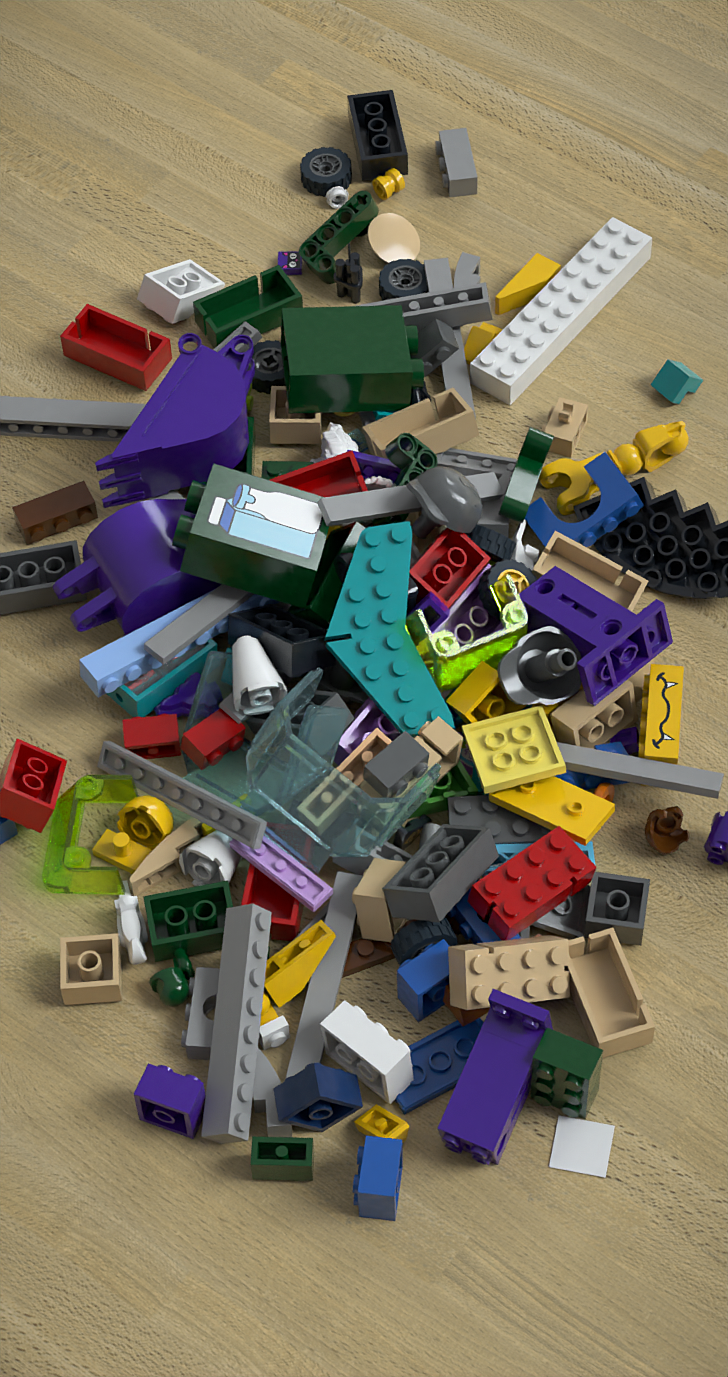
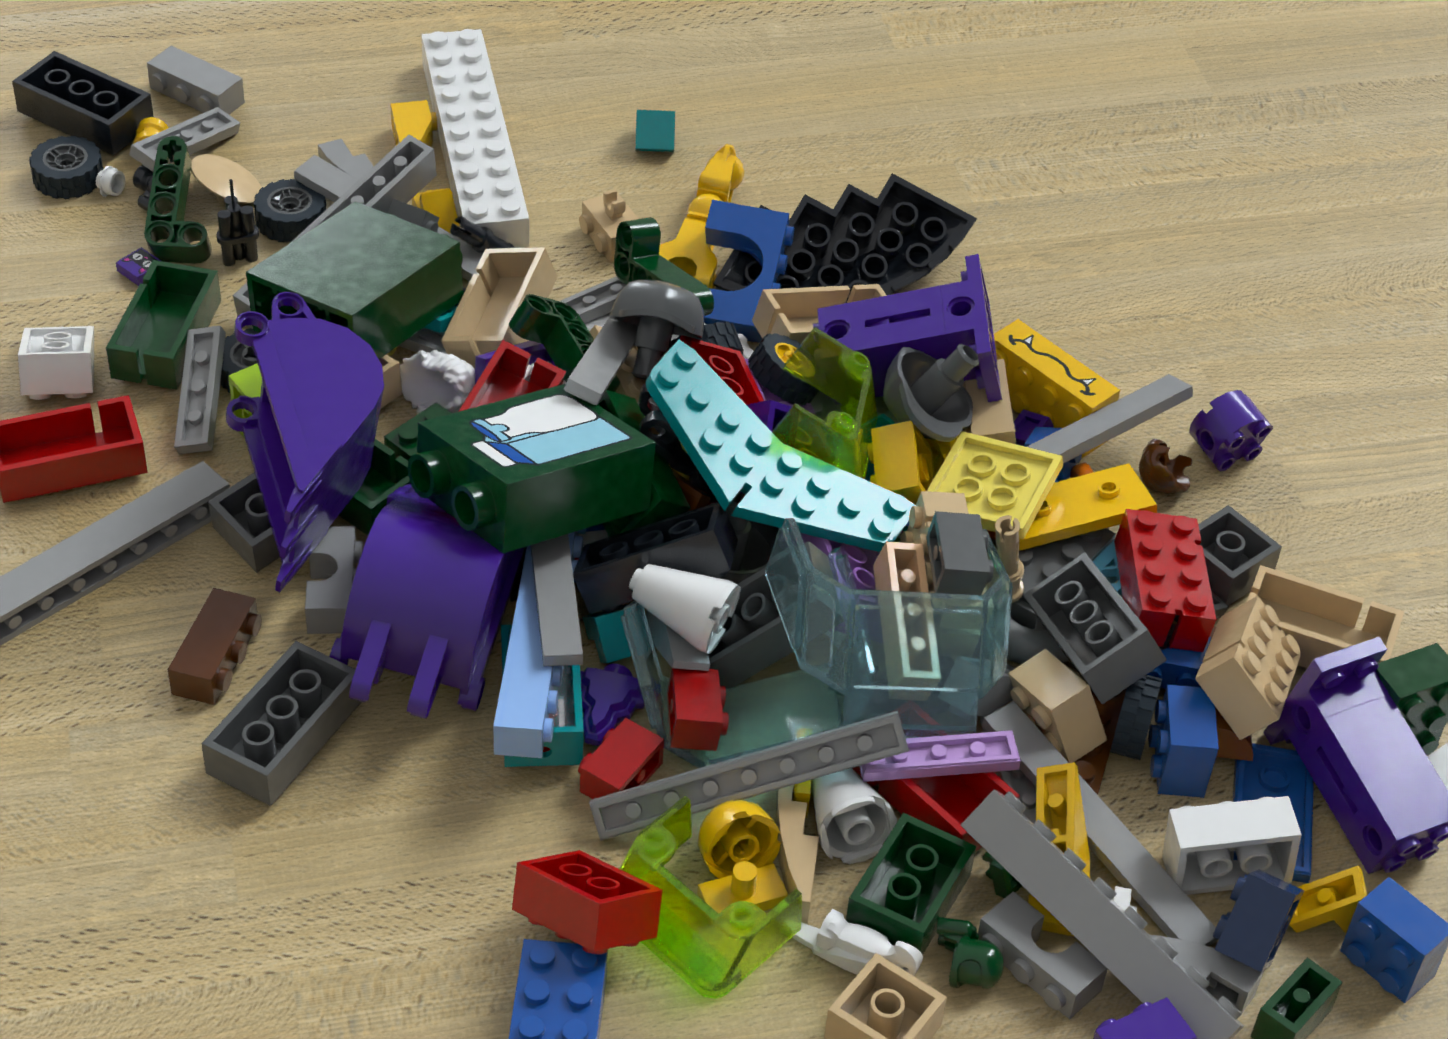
camera: 55 degrees left, 10 degrees down
(406, 196) = (196, 132): none -> light grey plate
(446, 800) = (1008, 550): none -> tan pin
(473, 380) = (479, 237): none -> black pin

